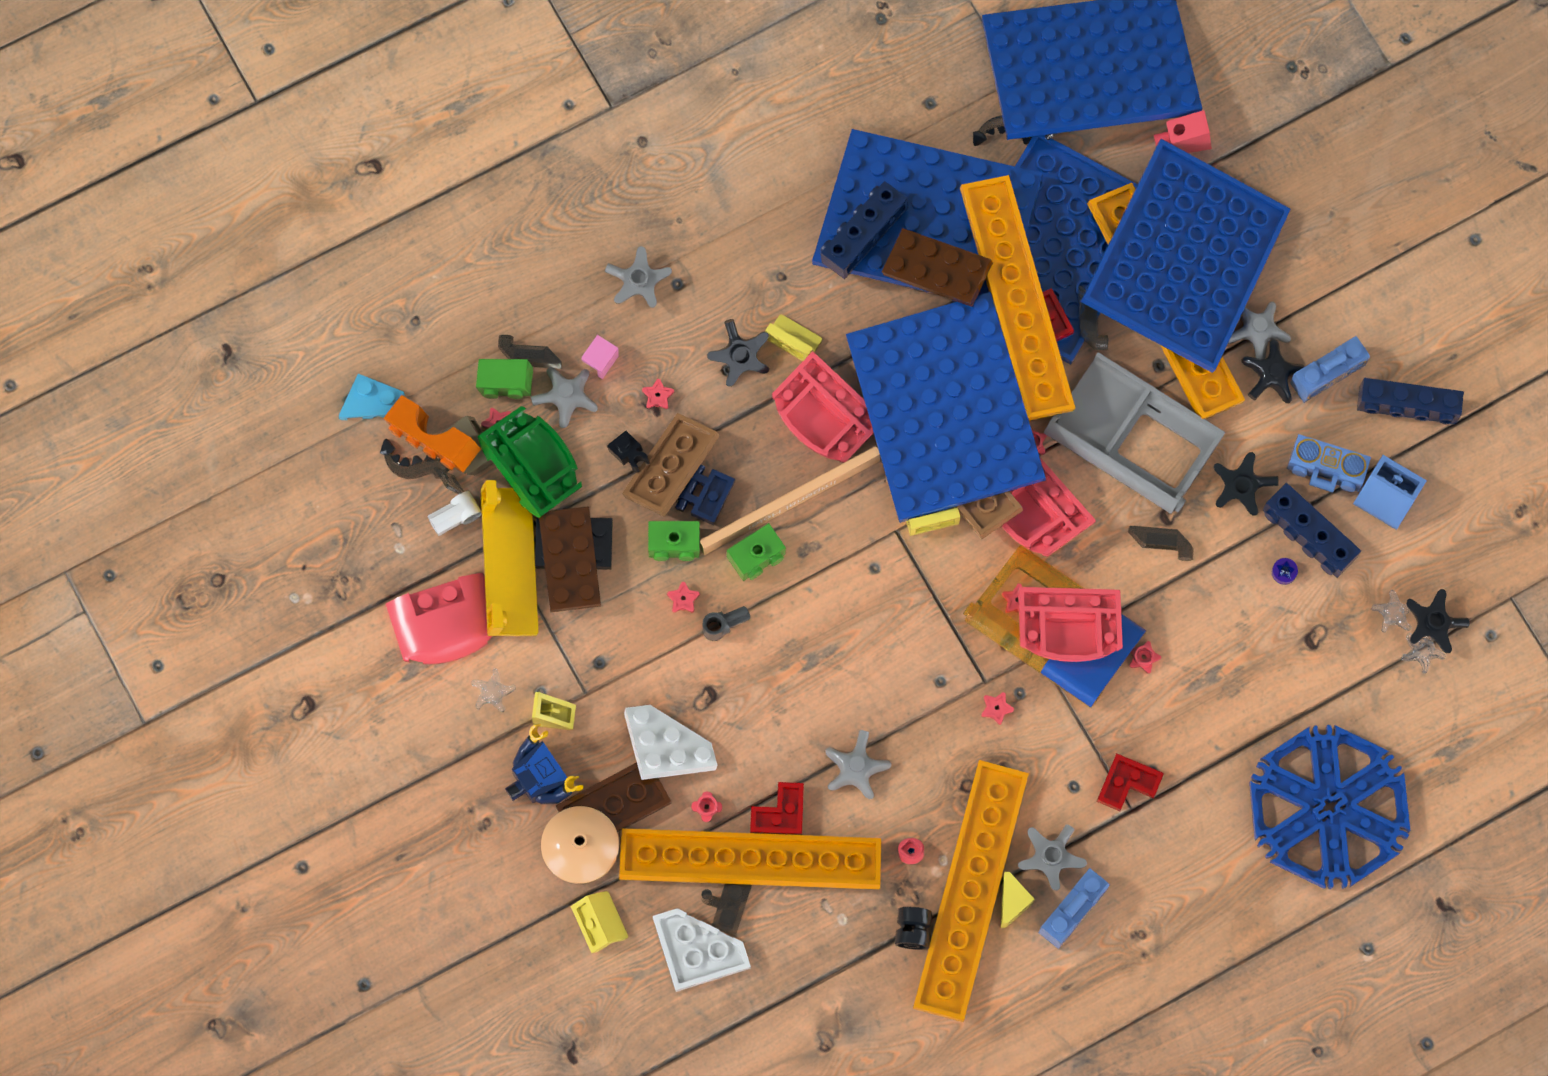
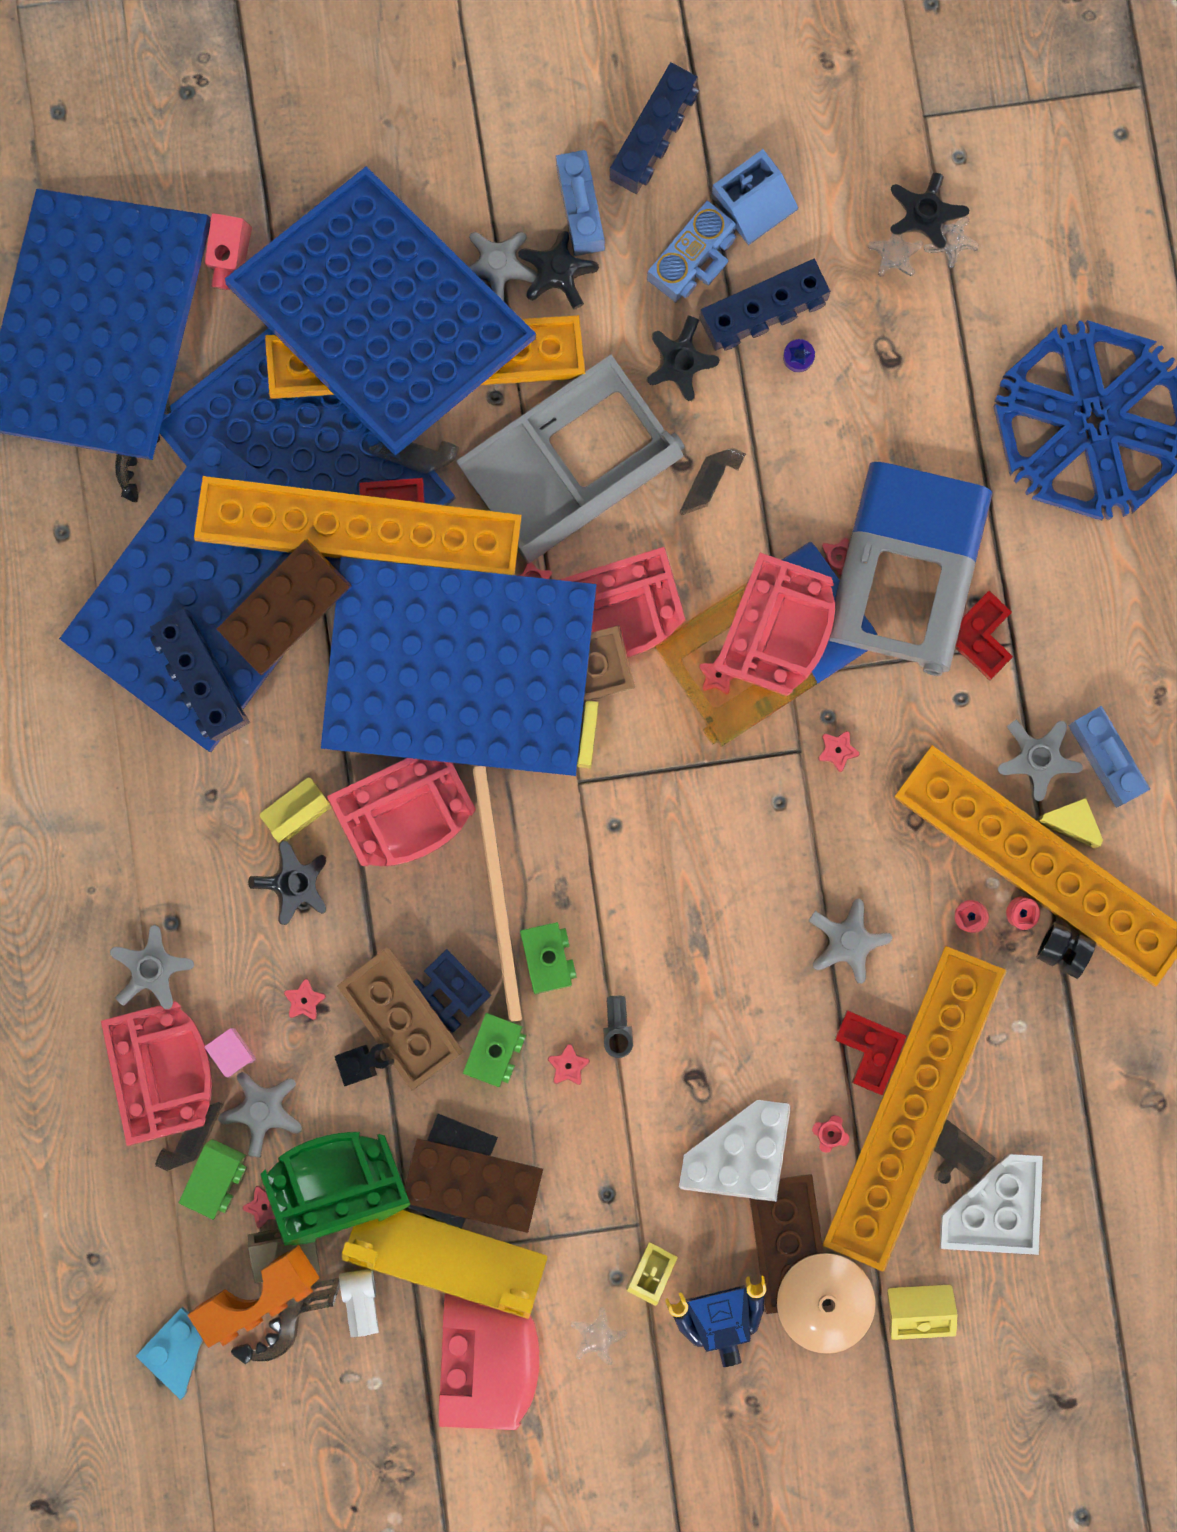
camera: 65 degrees left, 10 degrees up
(566, 311) = (158, 1072): none -> coral slope
(929, 888) = (1023, 913): none -> coral tile
(1196, 705) = (920, 519): none -> piece

